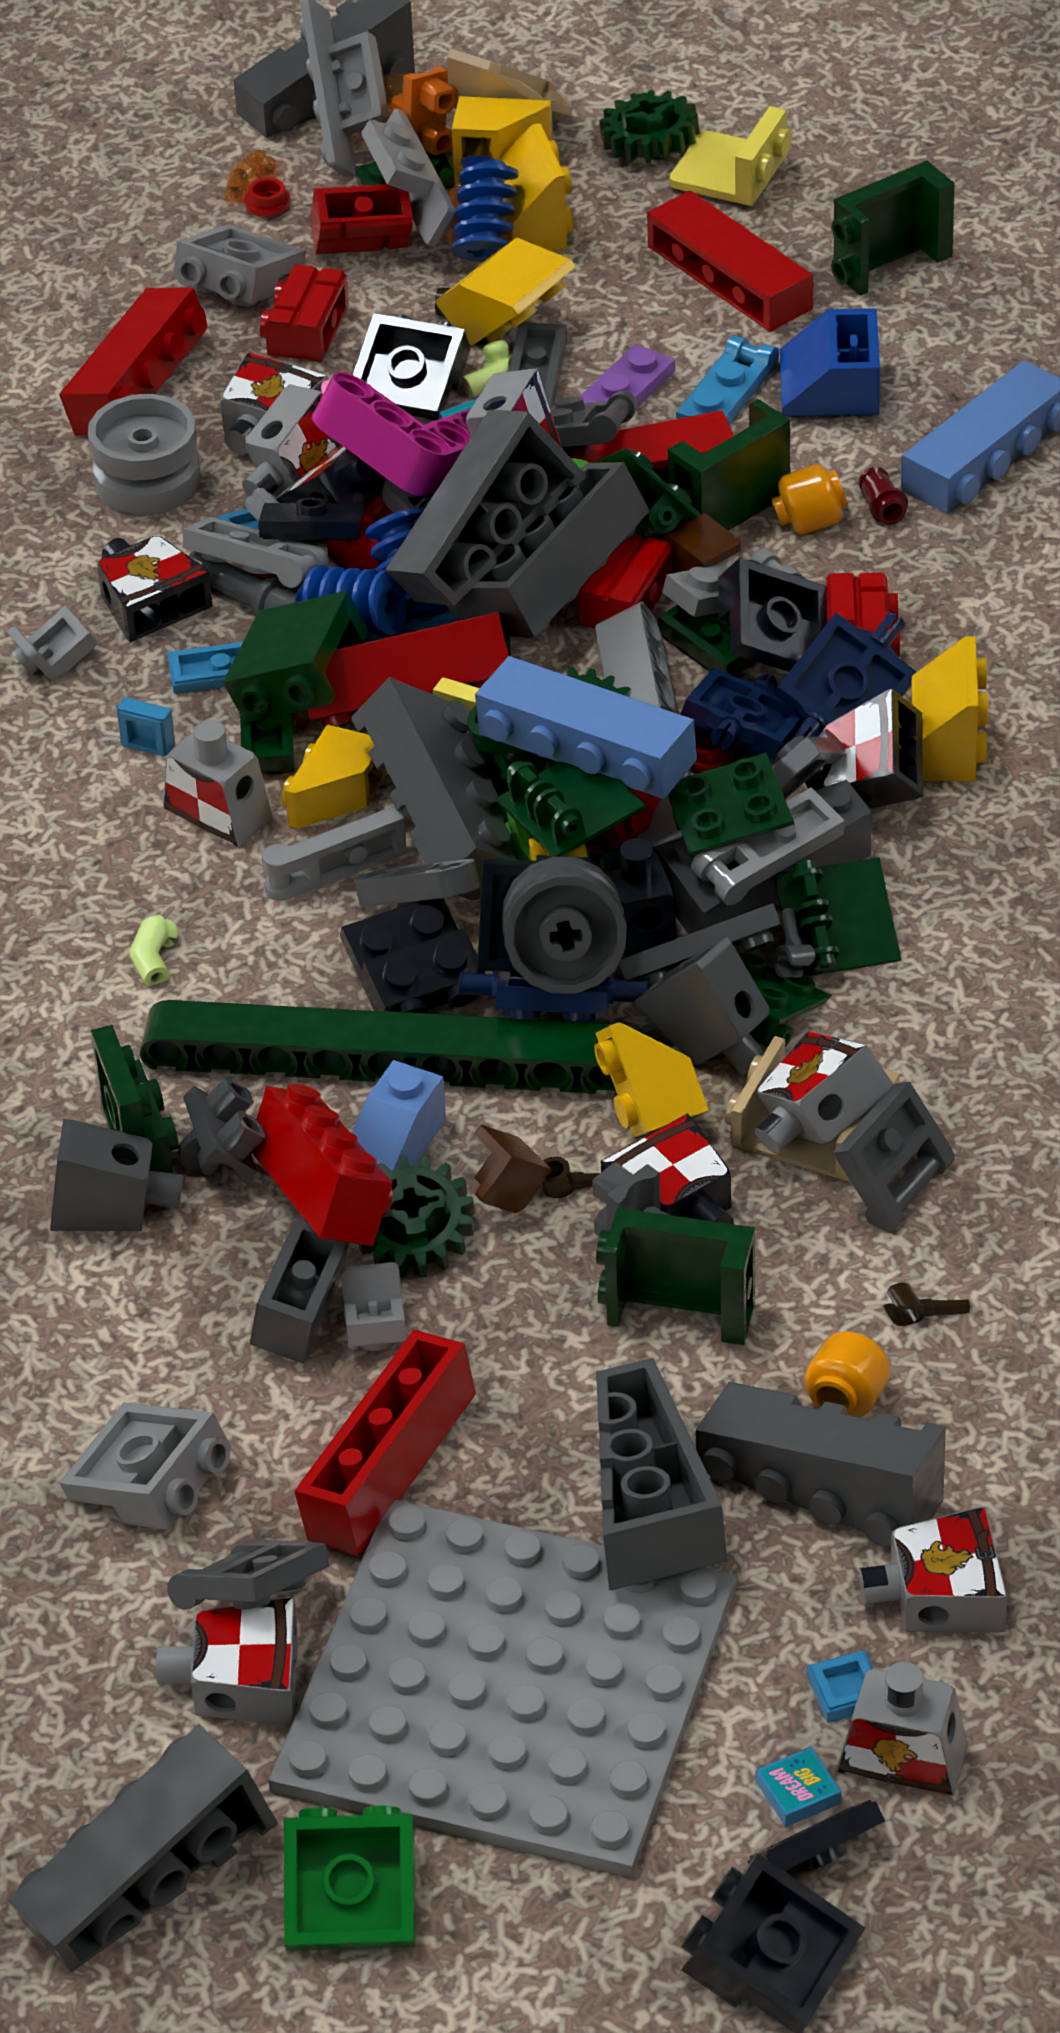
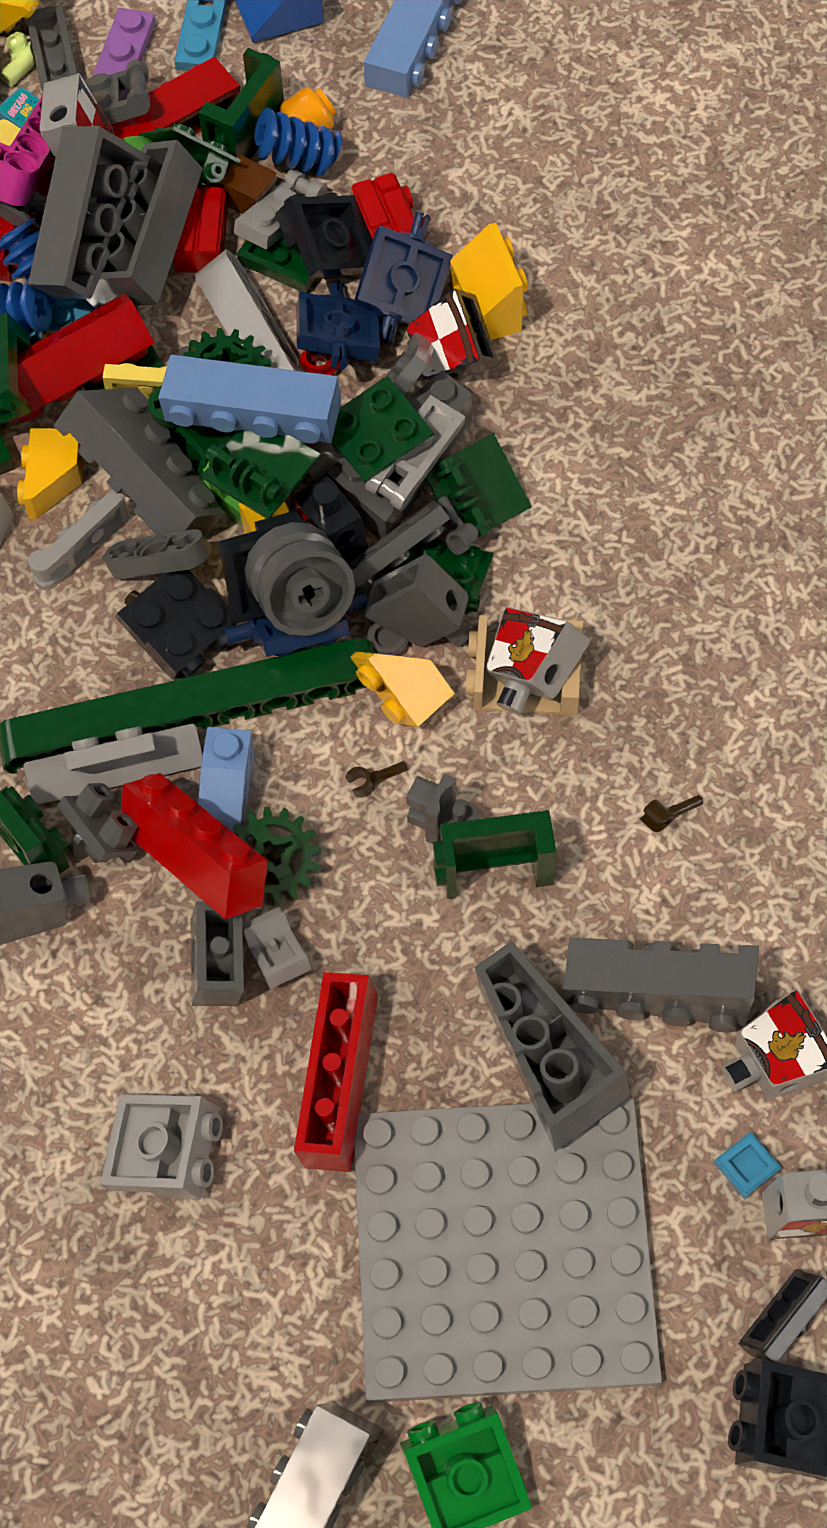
camera: 20 degrees left, 20 degrees up
(239, 1663) = (303, 1303): torso -> none
(249, 1574) = (296, 1235): dark grey plate -> none
(270, 1062) = (114, 762): none -> light grey bracket
(510, 1172) = (327, 792): reddish brown panel -> none
(692, 1173) = (455, 750): torso -> none
(780, 517) = (296, 141): none -> blue piece
(798, 1786) = (749, 1266): tile -> none
(848, 1372) = (646, 897): light orange head -> none
(884, 1145) = (605, 693): dark grey plate -> none
(886, 501) = (357, 97): dark red pin -> none

